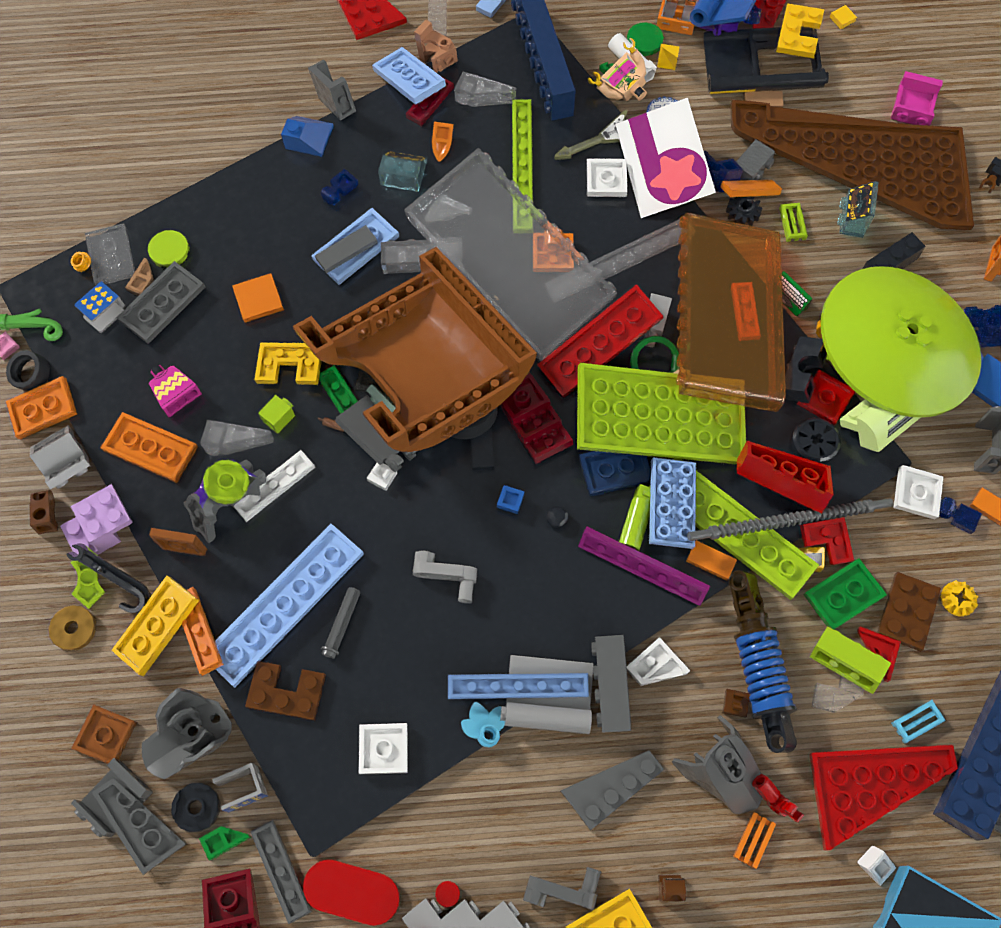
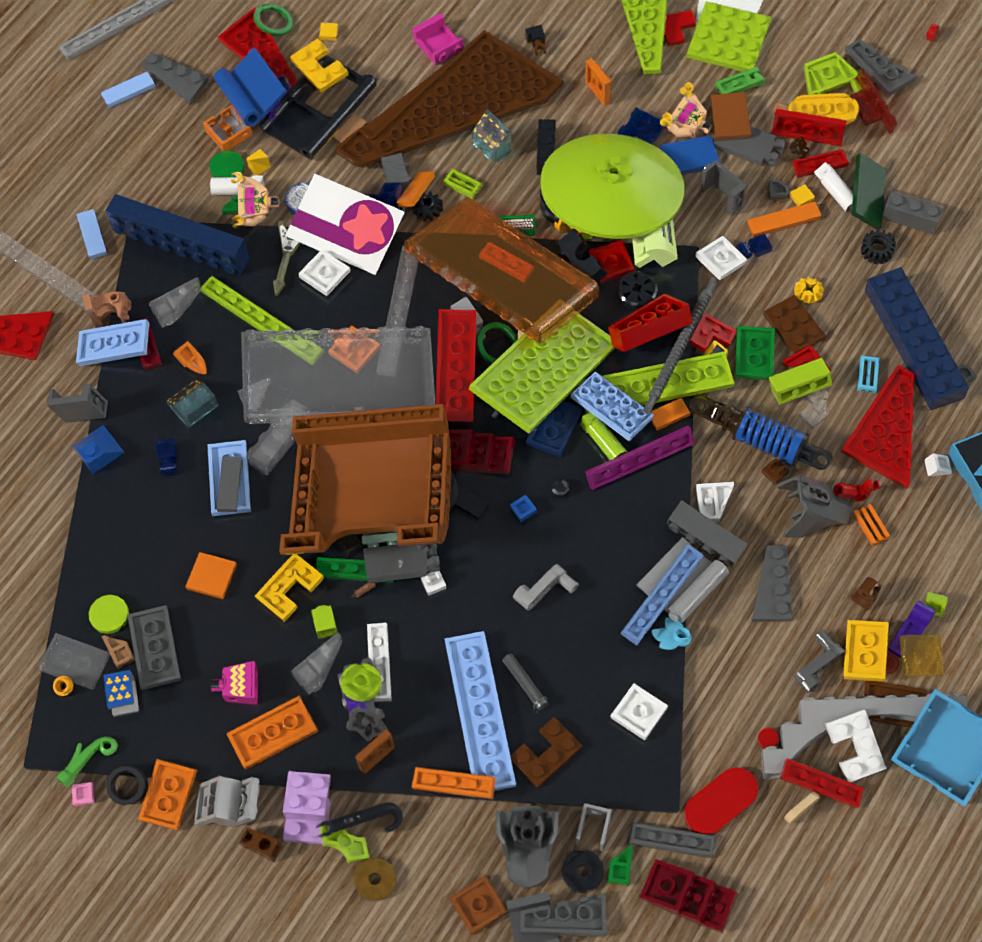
camera: 50 degrees left, 5 degrees down
(155, 625) = (424, 813): yellow tile -> none

